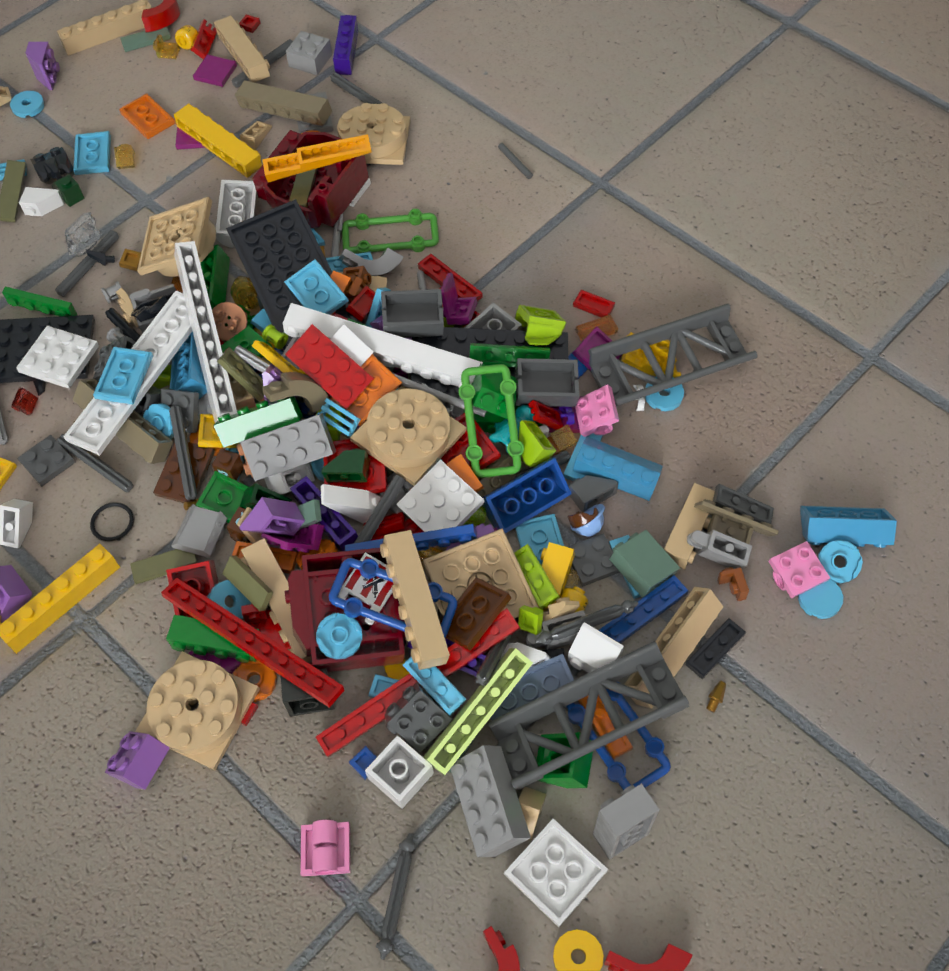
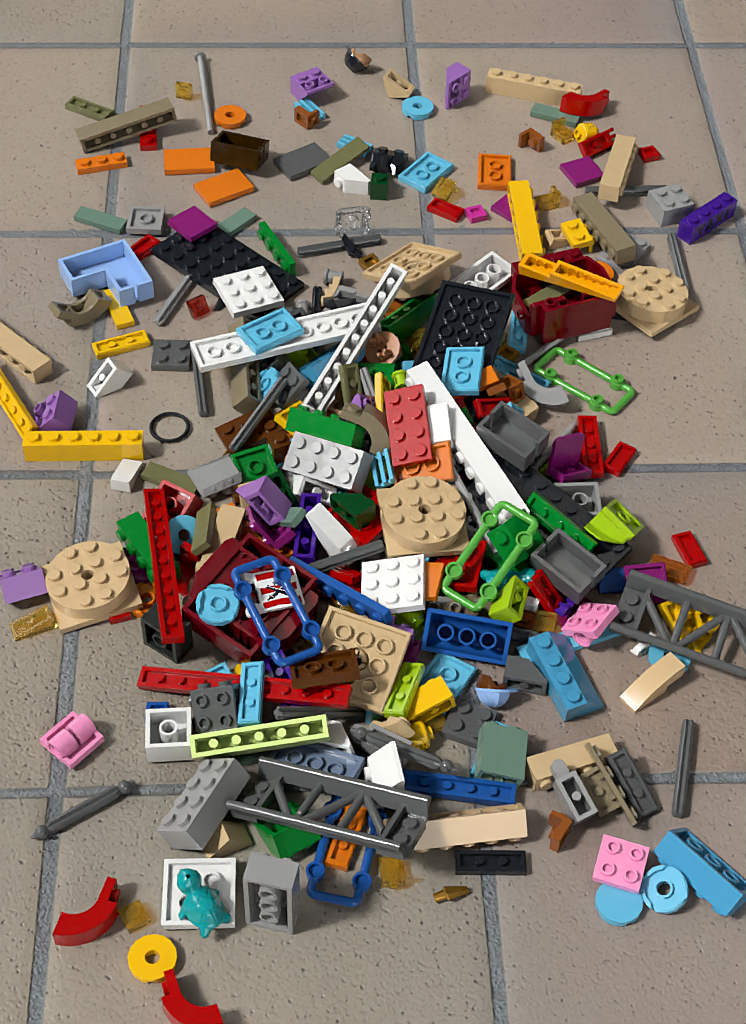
camera: 40 degrees right, 10 degrees down
(120, 591) = (125, 475): none -> white slope
(141, 173) = (445, 209): none -> red tile
(150, 68) = (531, 138): none -> dark orange bracket
(169, 160) = (475, 214): none -> dark pink tile
(183, 784) = (34, 623): none -> clear yellow slope
(216, 108) = (550, 200): none -> clear yellow bracket
(267, 122) = (577, 234): none -> yellow bracket
(415, 600) = (287, 619): tan brick -> none
(477, 273) = (619, 459): none -> red tile
(528, 938) = (134, 916): none -> clear yellow plate
(530, 619) = (366, 712): lime tile -> none
(579, 880) = (201, 904): none -> teal animal
(669, 724) = (391, 873): none -> clear yellow bracket
(677, 420) = (653, 682): none -> tan slope
(757, 465) = (683, 768): none -> dark grey axle

